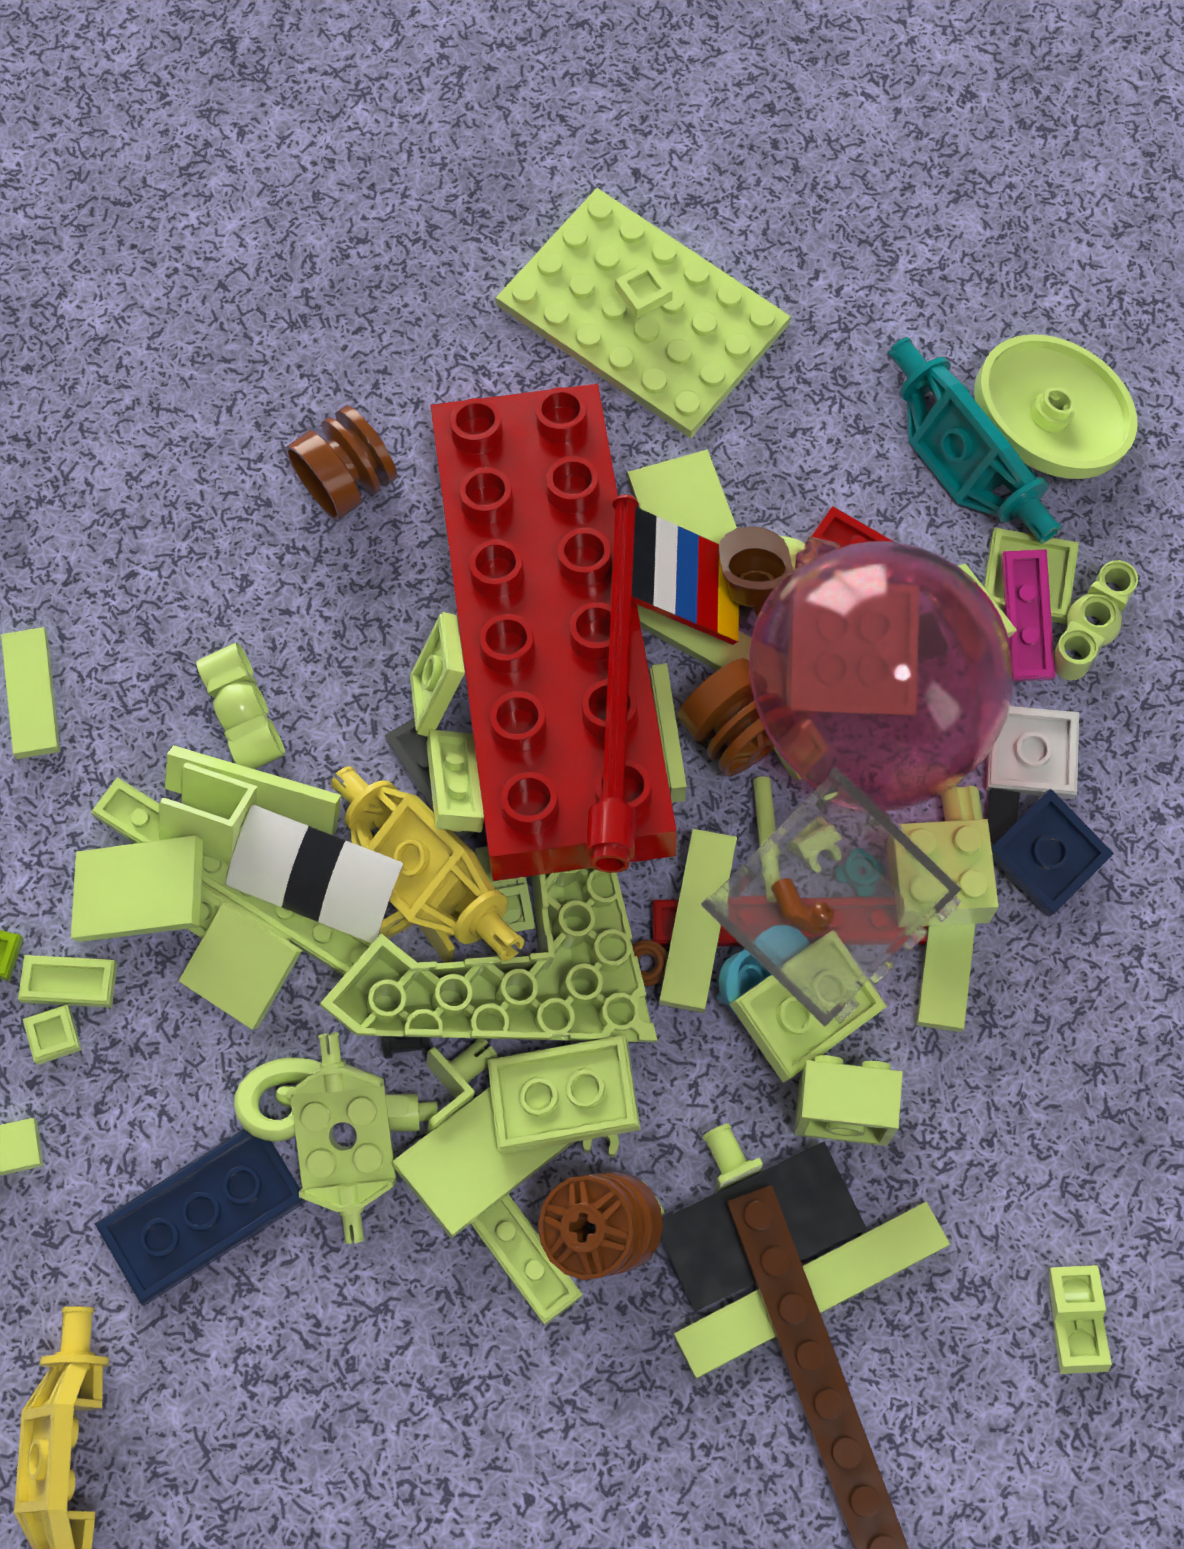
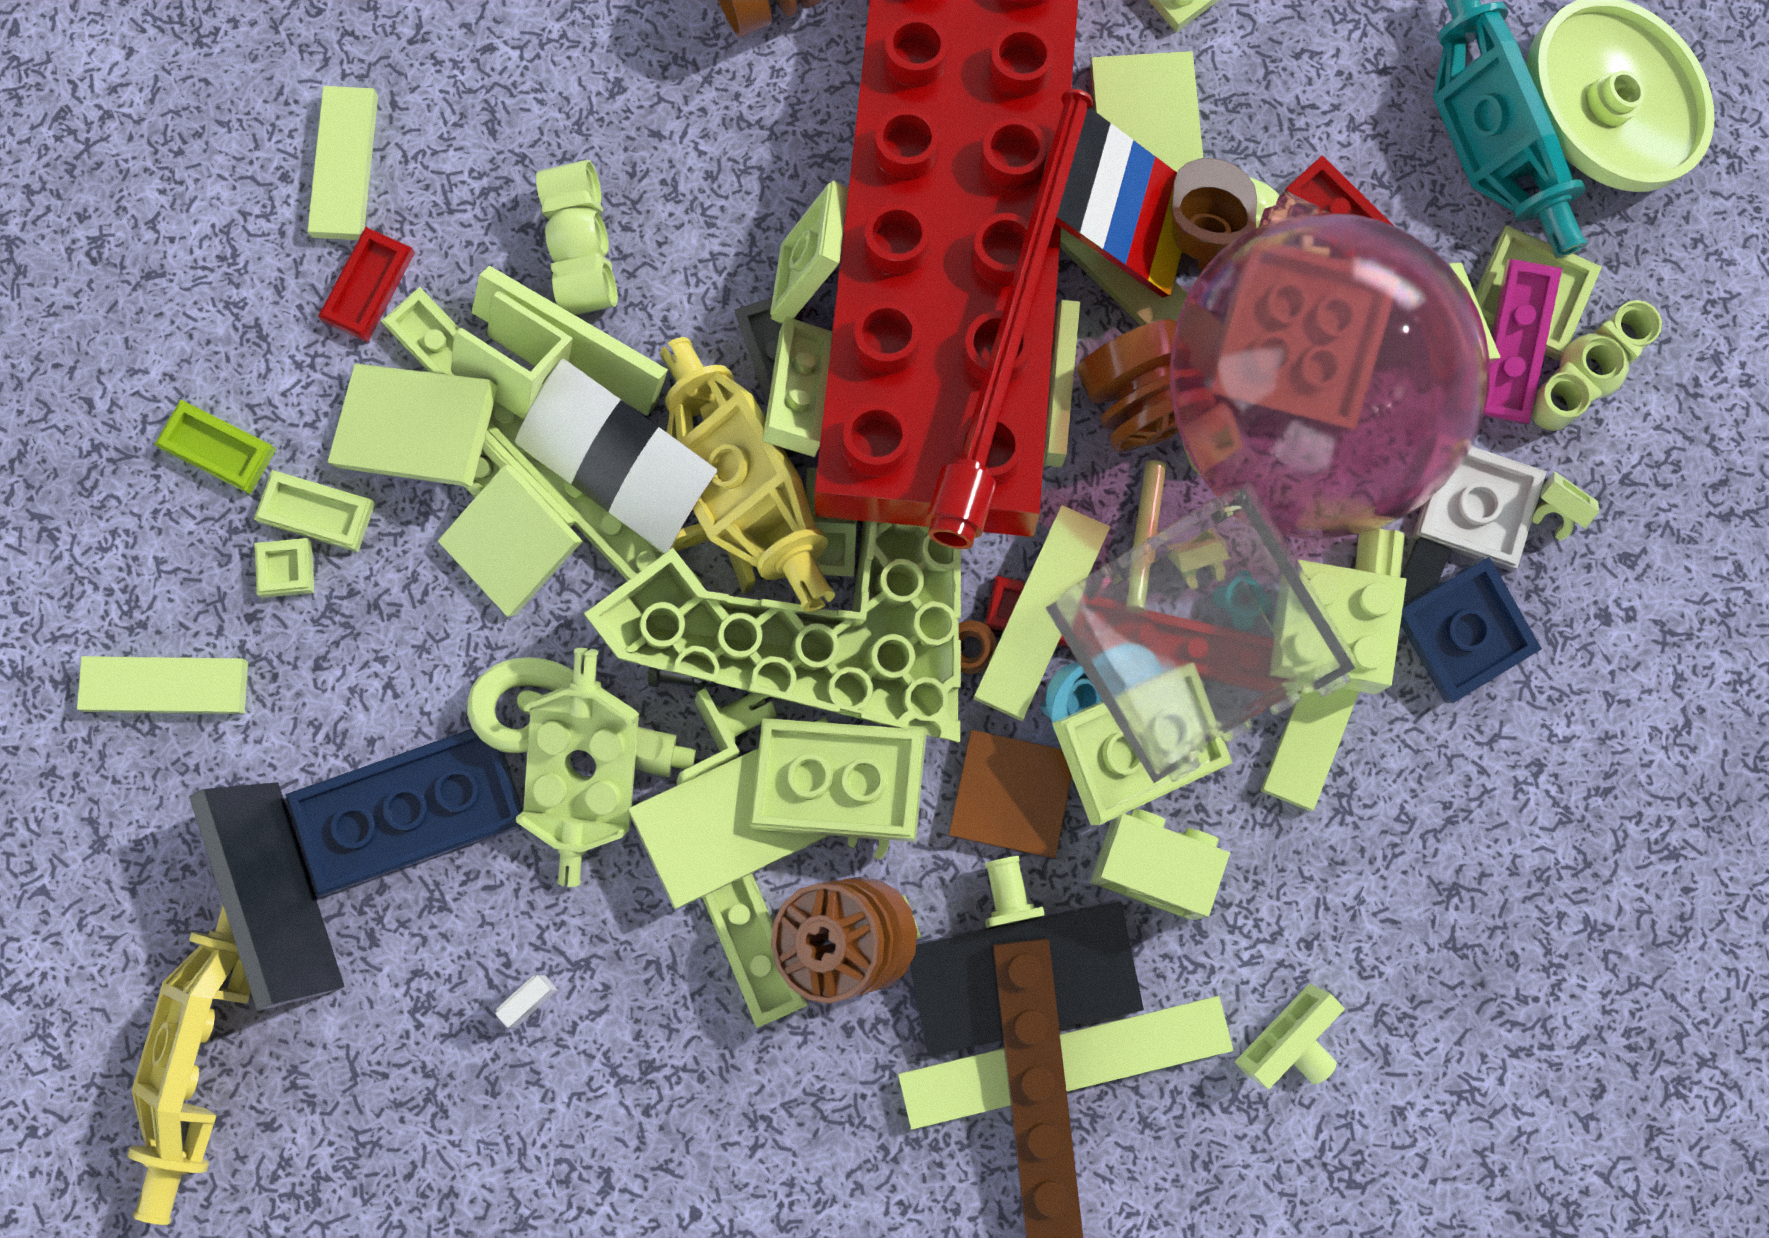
camera: 10 degrees right, 10 degrees up
(71, 786) = (366, 284): none -> red tile
(99, 1308) = (266, 893): none -> black tile
(341, 1347) = (525, 1000): none -> white tile
(711, 1077) = (1011, 795): none -> dark orange tile
(797, 913) = (1157, 636): dark orange arm -> none
(997, 1223) = (1294, 1040): none -> yellowish green tile
(1078, 1319) = (1356, 1169): yellowish green slope -> none
(1103, 732) = (1568, 501): none -> yellowish green tile

